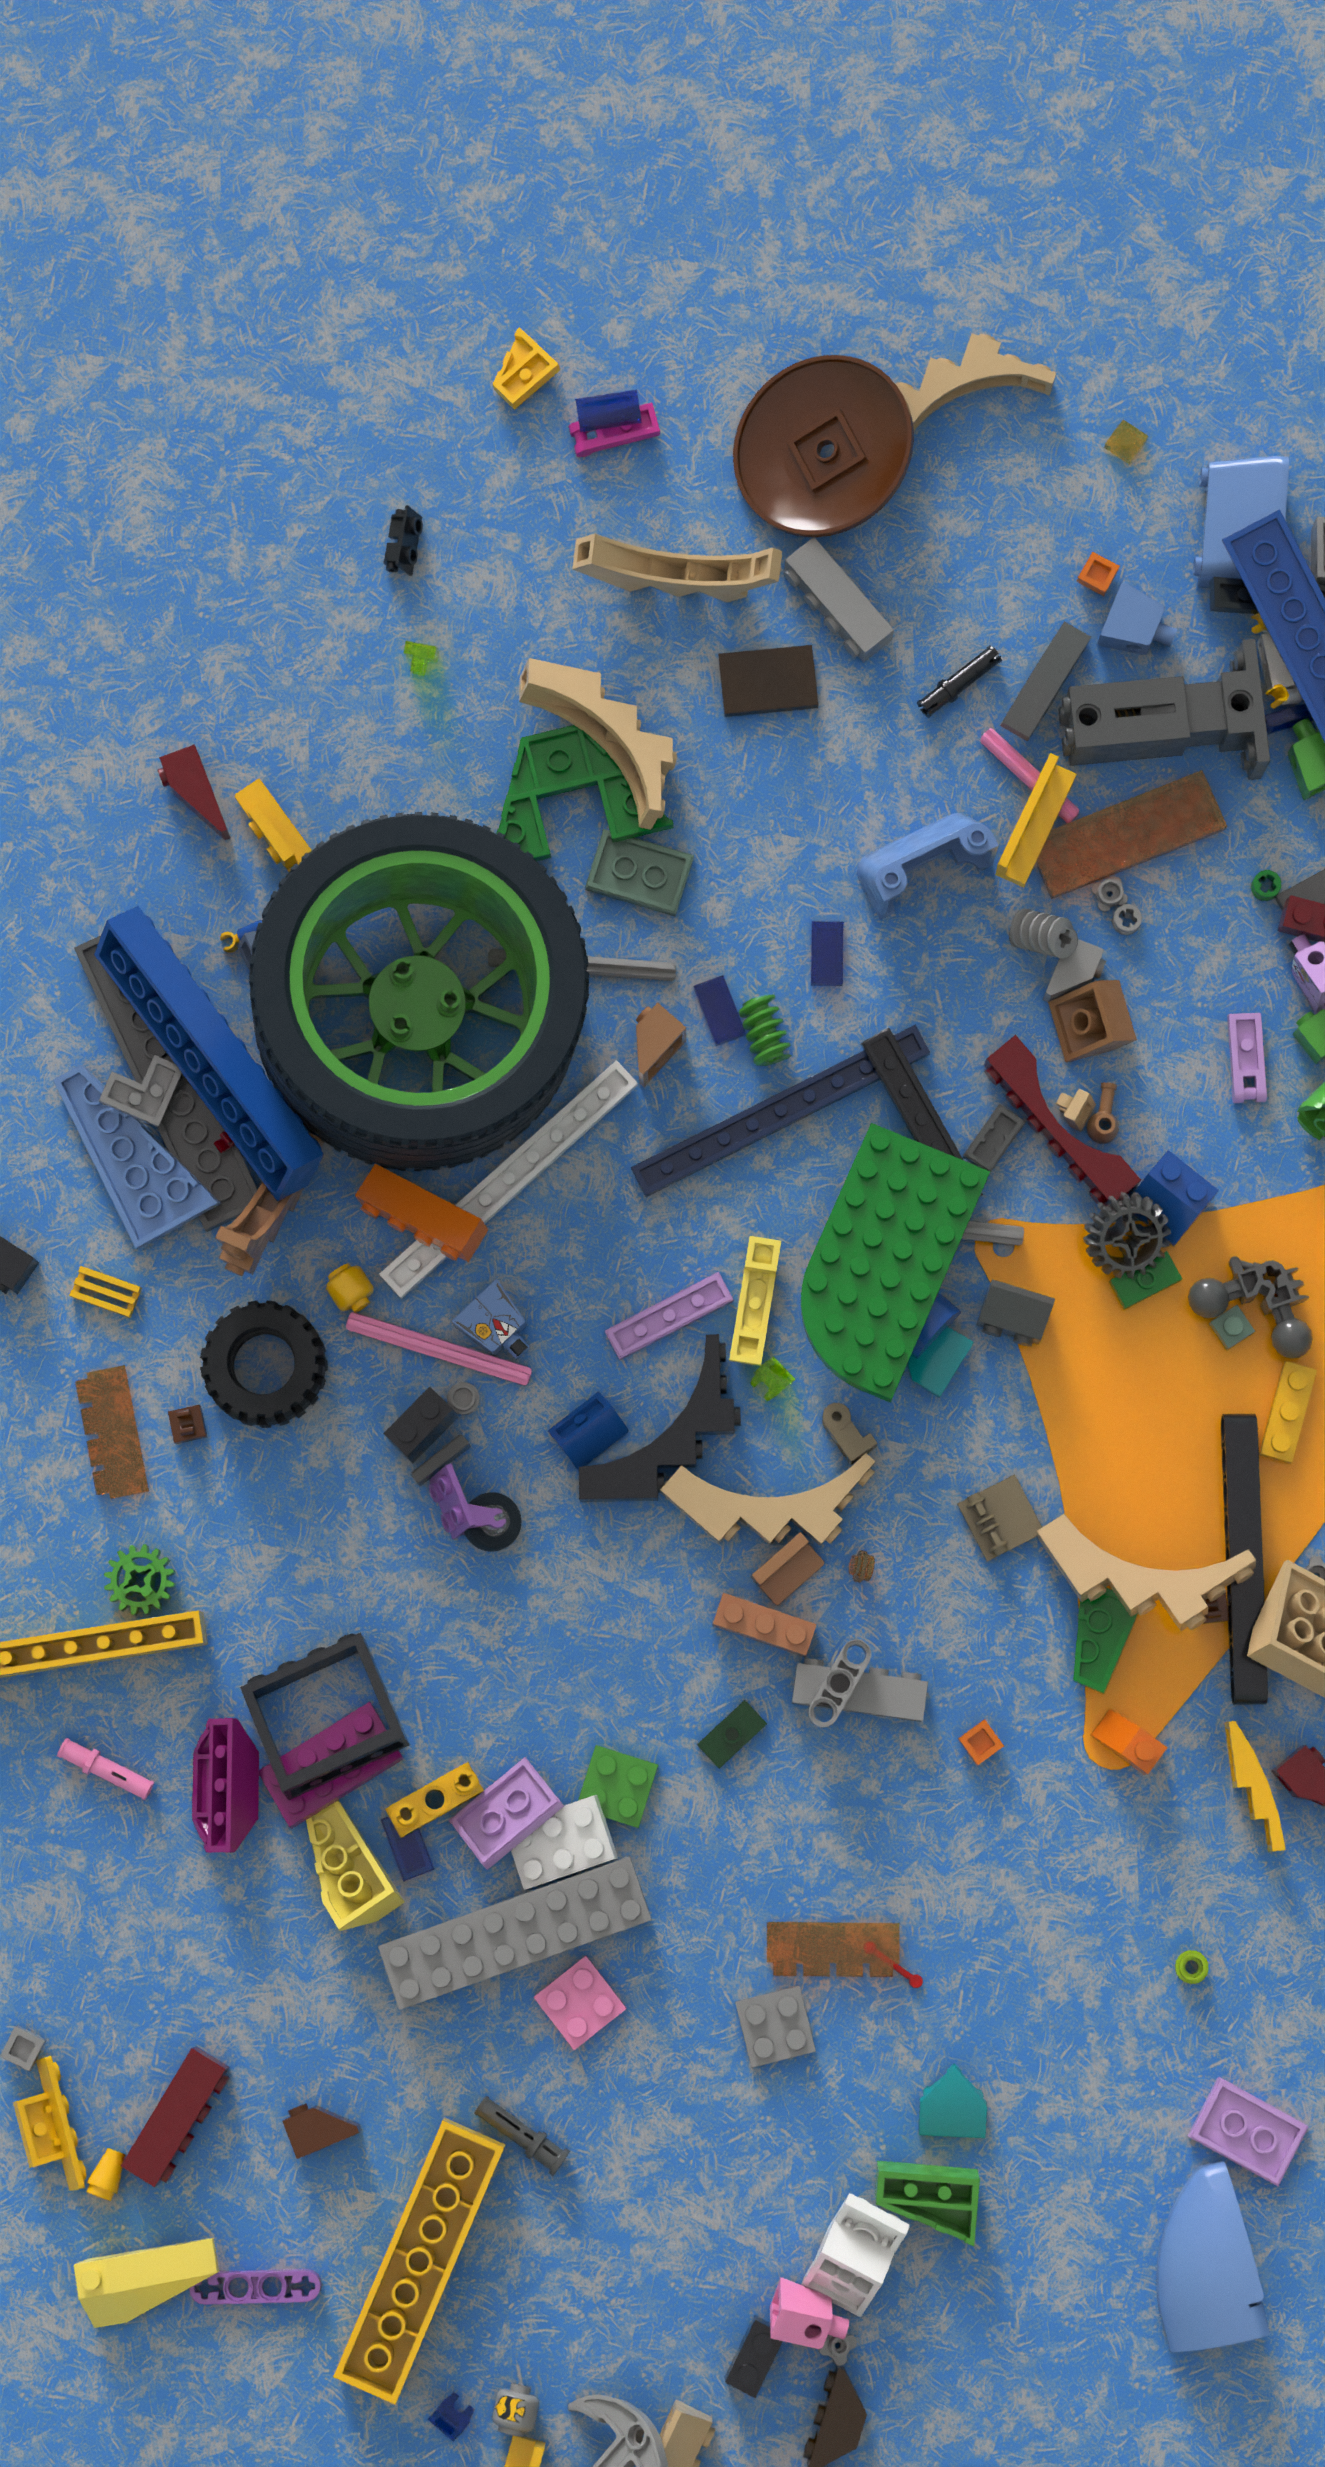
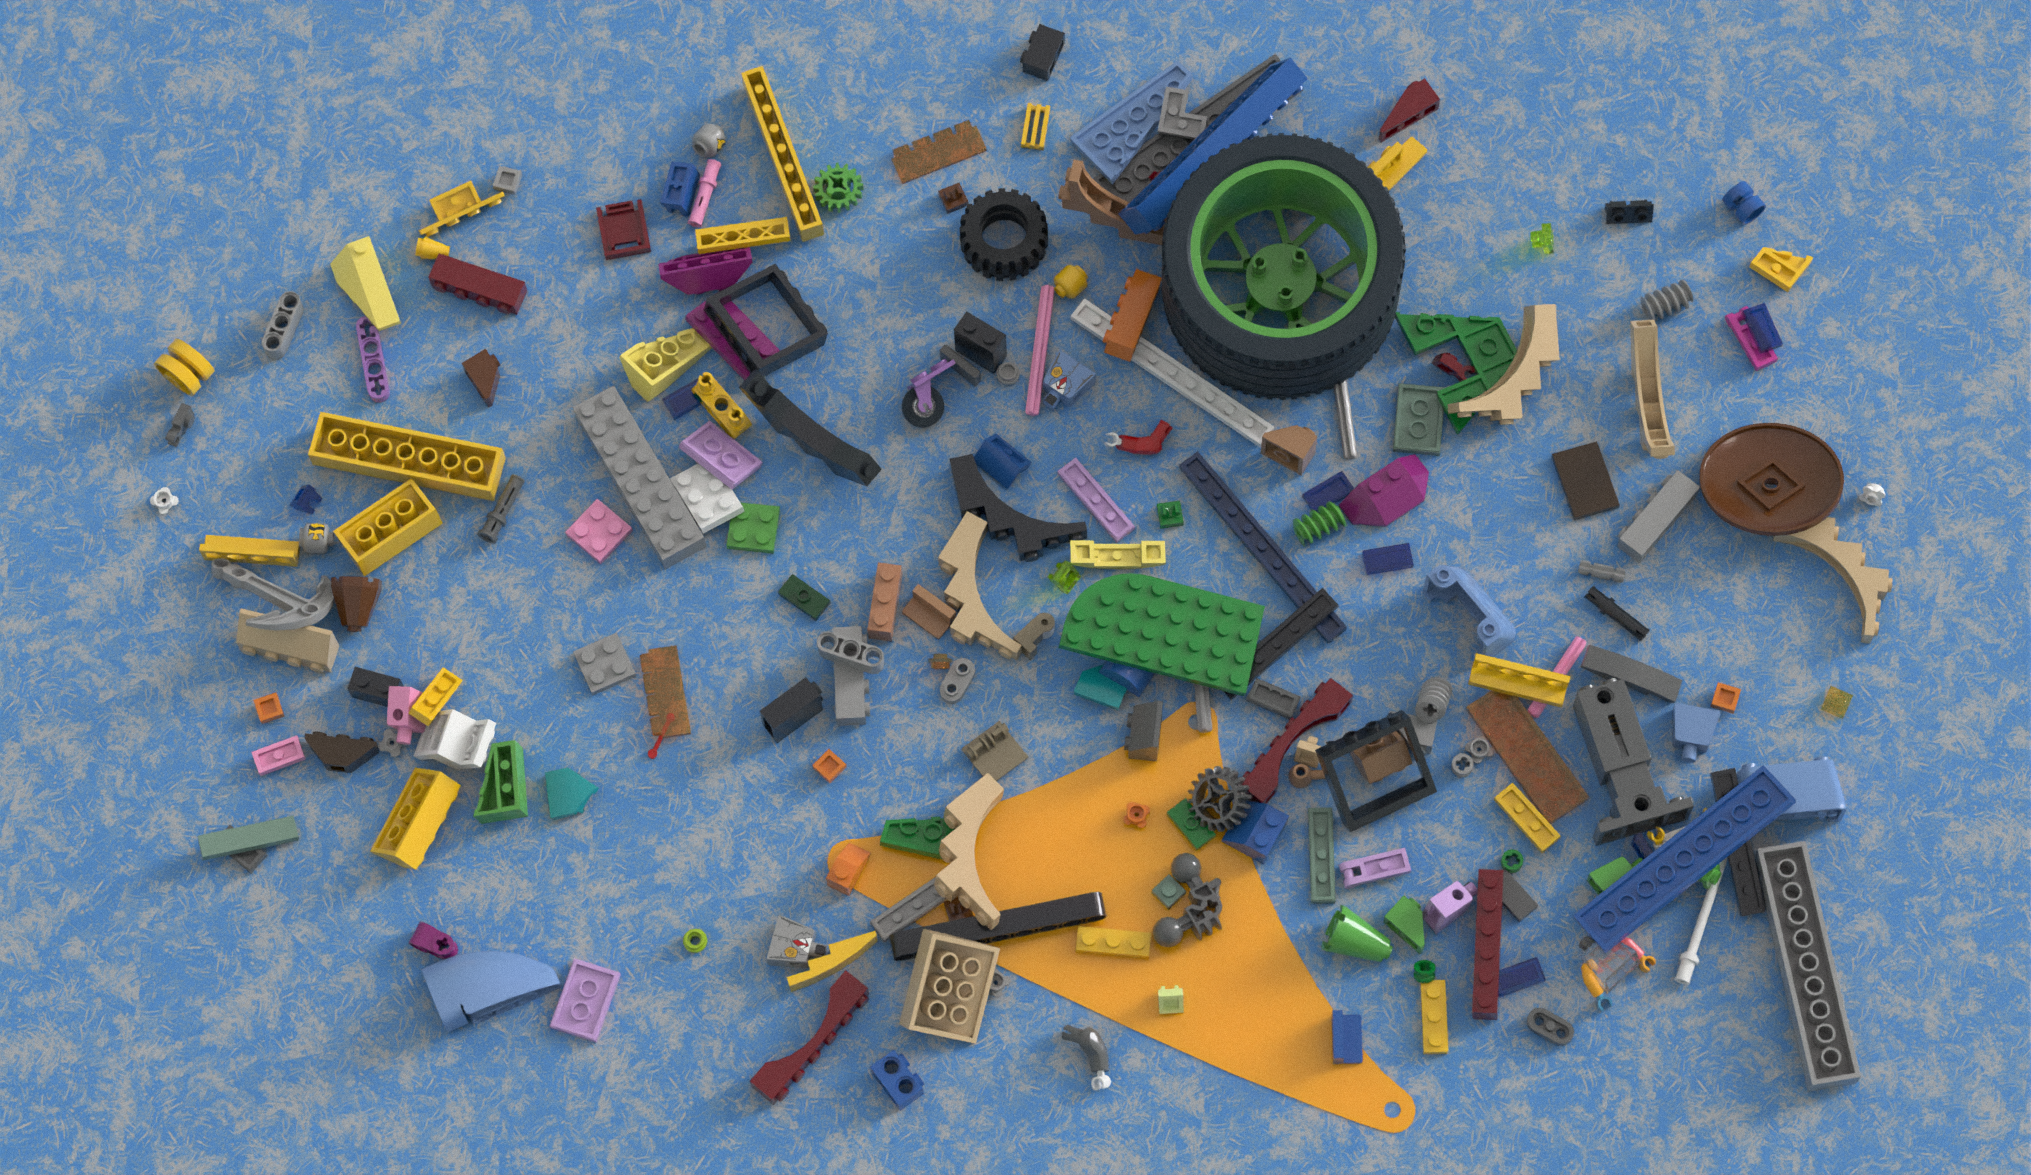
camera: 80 degrees right, 10 degrees down
(27, 1749) = (708, 140): none -> light grey head
(91, 1802) = (680, 187): none -> blue hinge
(129, 1893) = (622, 227): none -> dark red container
(161, 2412) = (282, 335): none -> light grey beam
(182, 1725) = (742, 235): none -> yellow fence
(437, 390) = (1745, 210): none -> blue wheel
(507, 1682) = (811, 437): none -> black arch
(521, 2304) = (388, 527): none -> yellow slope
(541, 520) = (1666, 300): none -> light grey piece
(575, 815) = (1449, 365): none -> dark red plate
(606, 1239) = (1142, 445): none -> red arm
(620, 2366) = (355, 600): none -> reddish brown cone
(709, 1222) = (1170, 514): none -> green tile
(739, 933) = (1387, 493): none -> magenta wedge
(790, 2273) = (435, 696): none -> yellow plate
(860, 331) = (1872, 494): none -> white plate
(889, 1549) = (957, 679): none -> light grey plate
(897, 688) = (1601, 571): none -> light grey axle
(899, 1778) = (792, 709): none -> black brick
(953, 2328) = (416, 818): none -> yellow slope
(1111, 1350) = (1133, 808): none -> orange plate
(1131, 2334) = (430, 941): none -> magenta piece
(1161, 1014) = (1390, 802): none -> black window
(1195, 1668) = (907, 910): none -> light grey tile
(1213, 853) = (1527, 818): none -> yellow plate
(1215, 1122) = (1321, 855): none -> sand green tile
(1223, 1834) = (793, 944): none -> light grey torso

